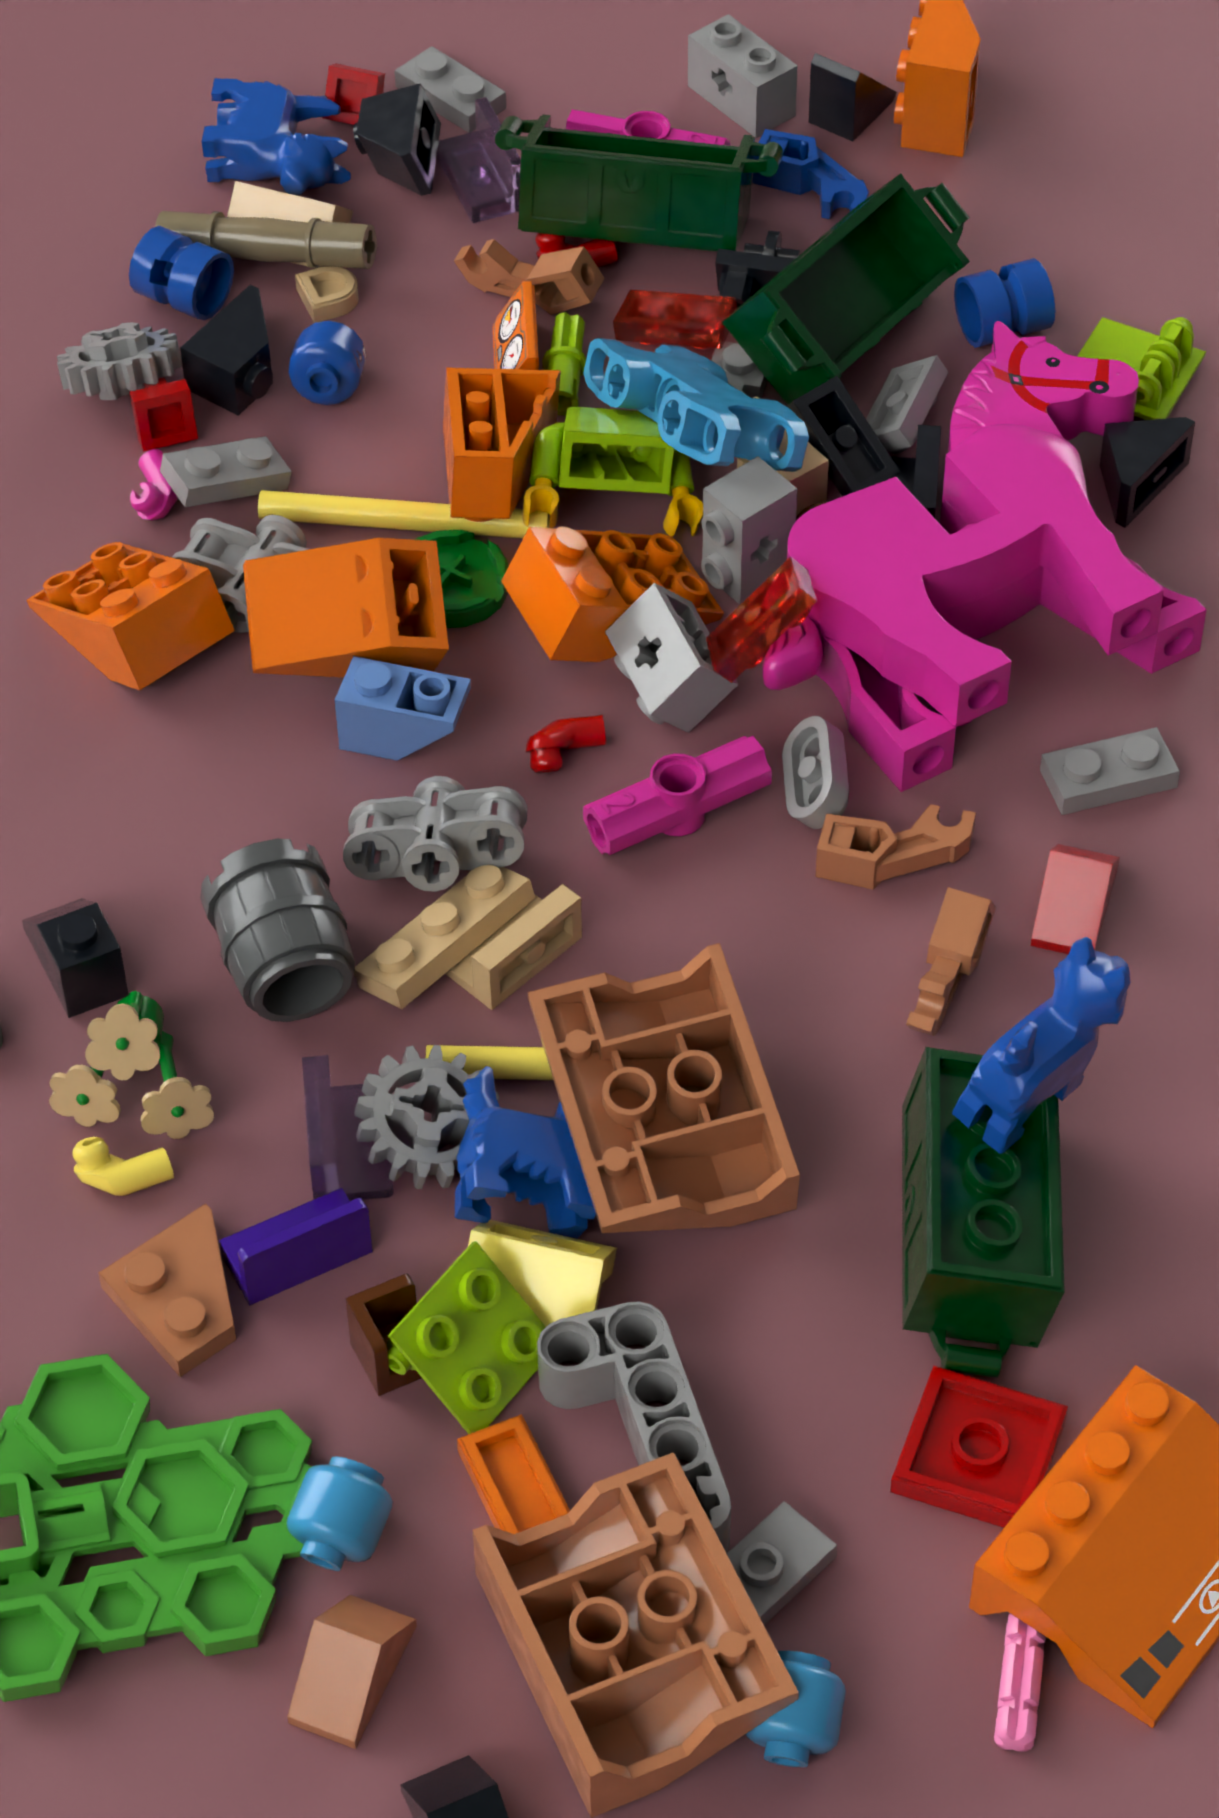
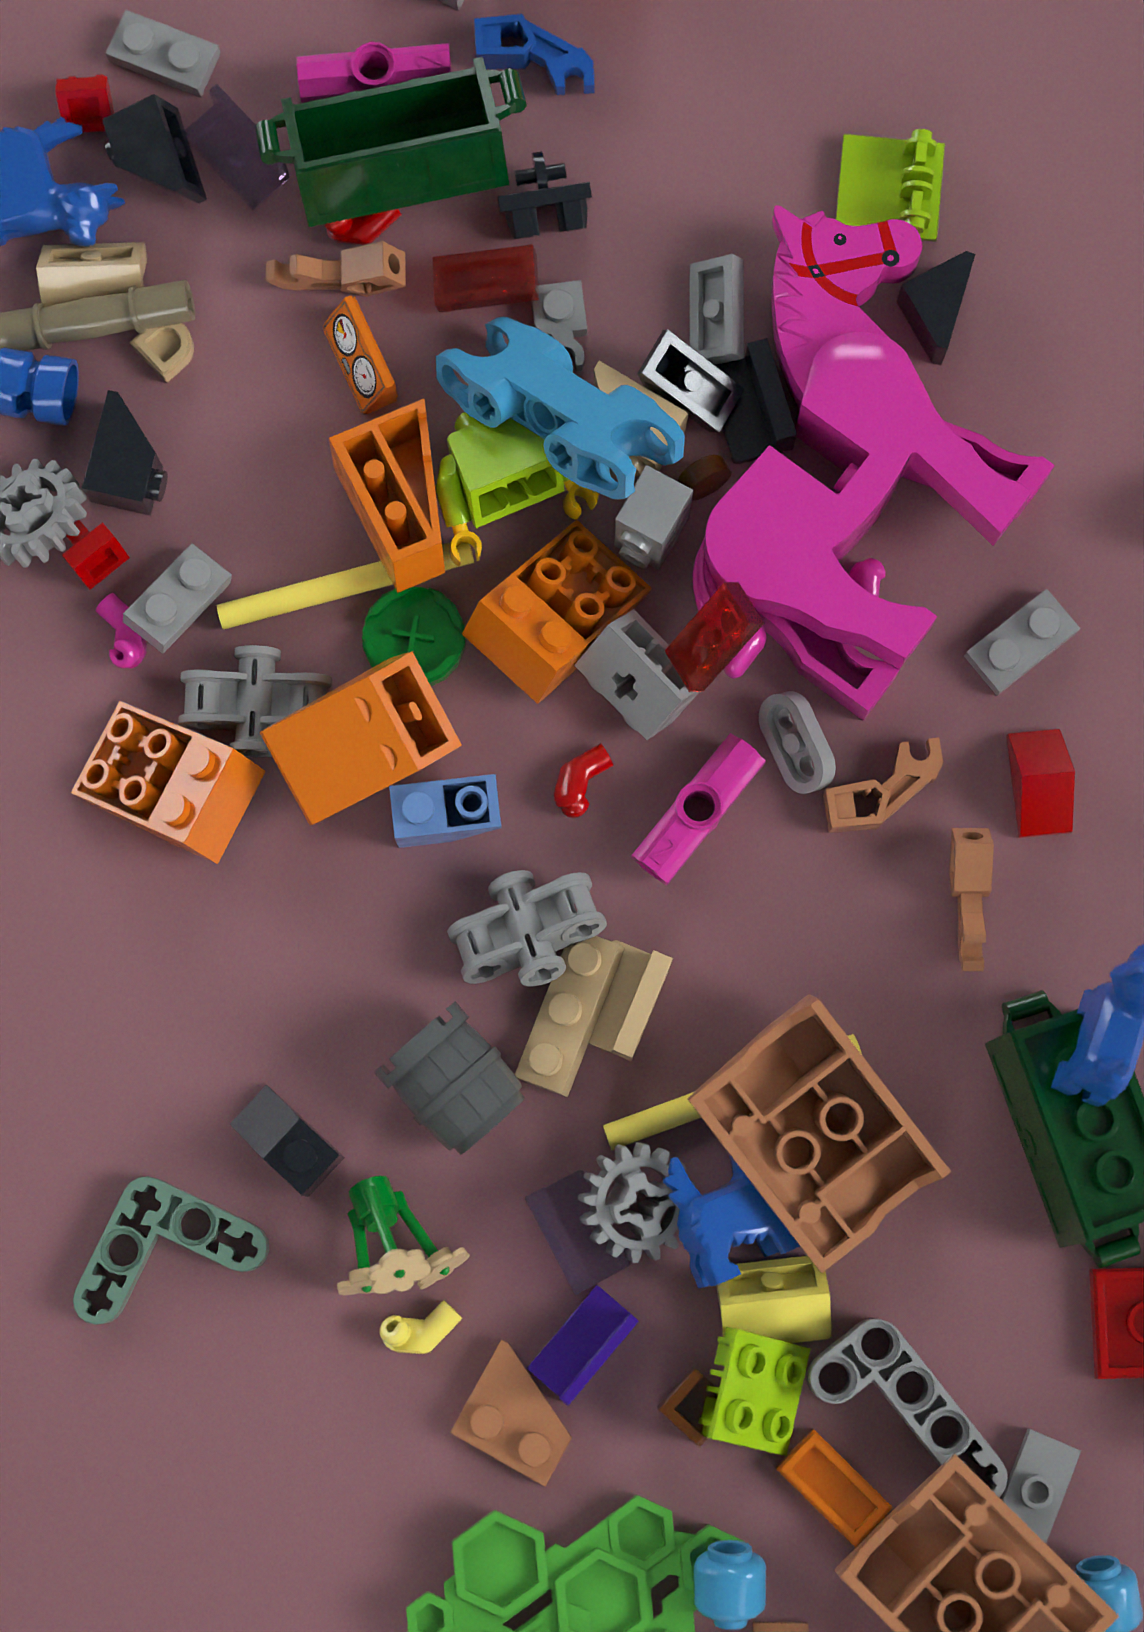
camera: 20 degrees left, 30 degrees up
(327, 363) = (209, 443): blue head -> none
(568, 357) = (409, 359): lime axle -> none
(851, 286) = (632, 208): dark green container -> none
(1016, 296) = (767, 153): blue wheel -> none

